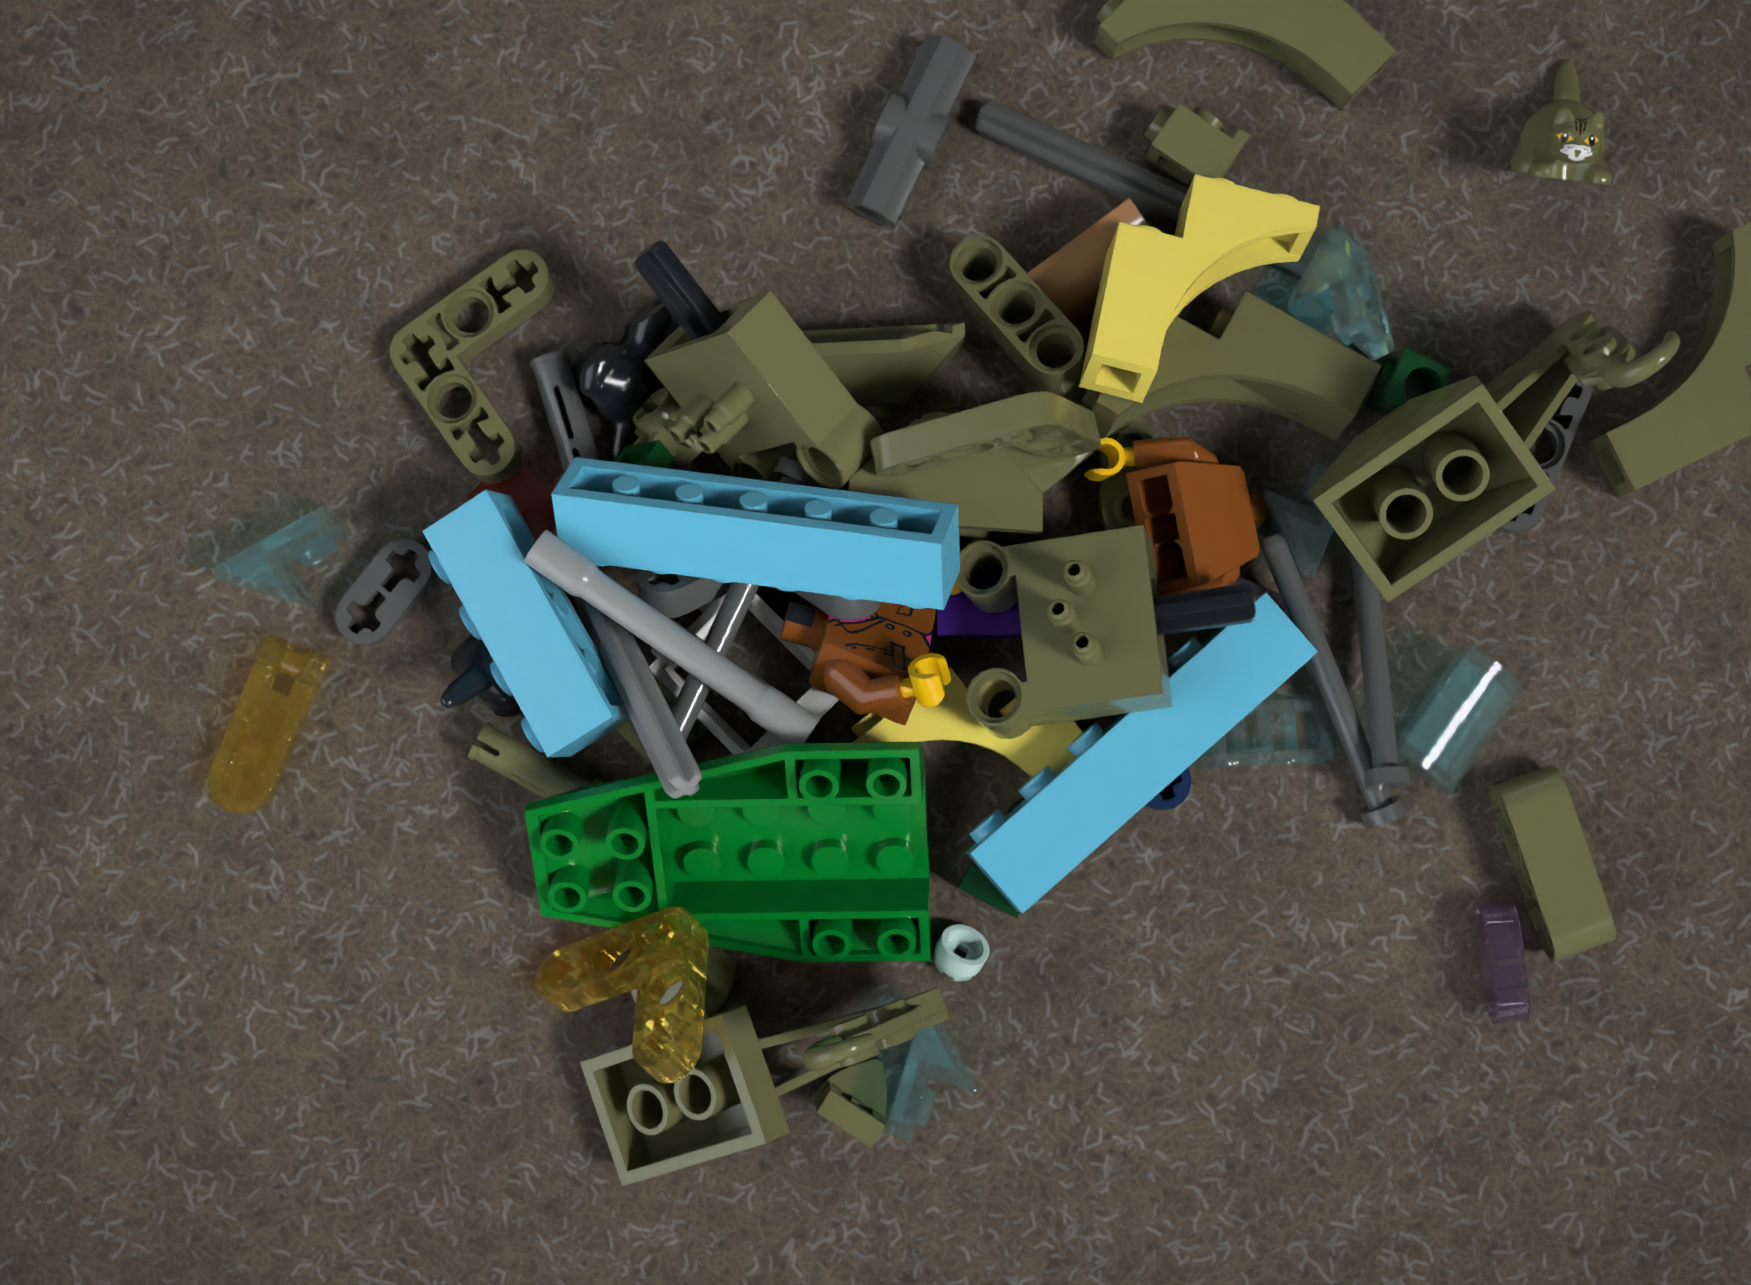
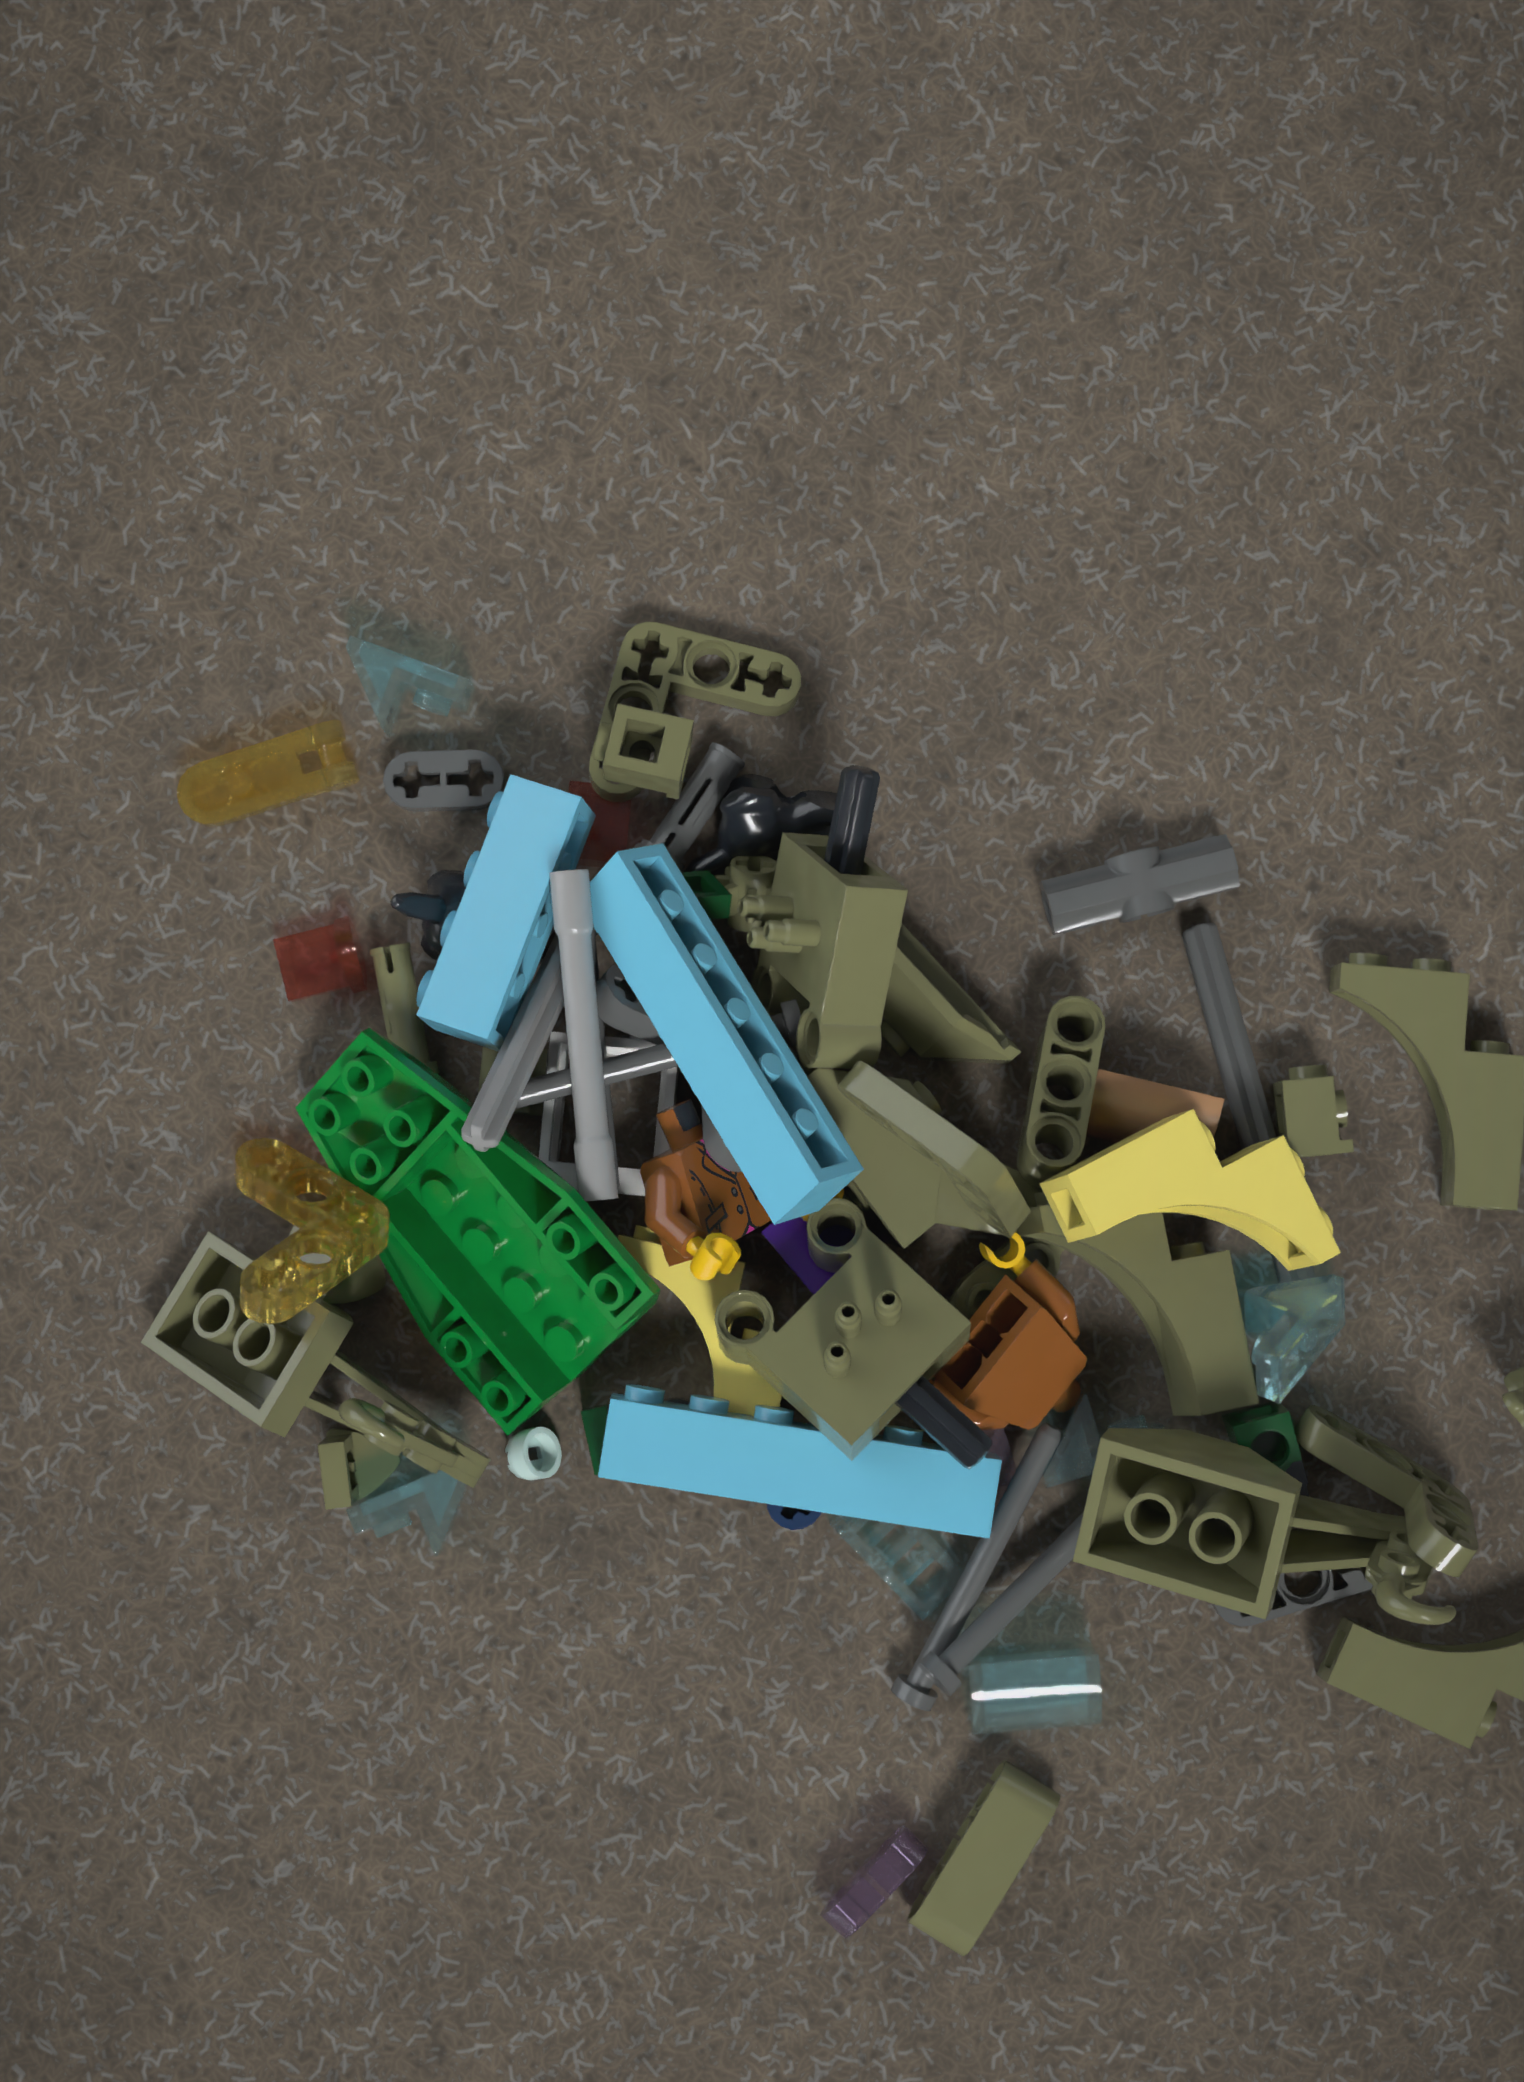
camera: 50 degrees right, 0 degrees up
(445, 802) = (322, 961): none -> clear red tile
(486, 393) = (661, 733): none -> olive brick
(1572, 301) = (1435, 1510): none -> olive beam

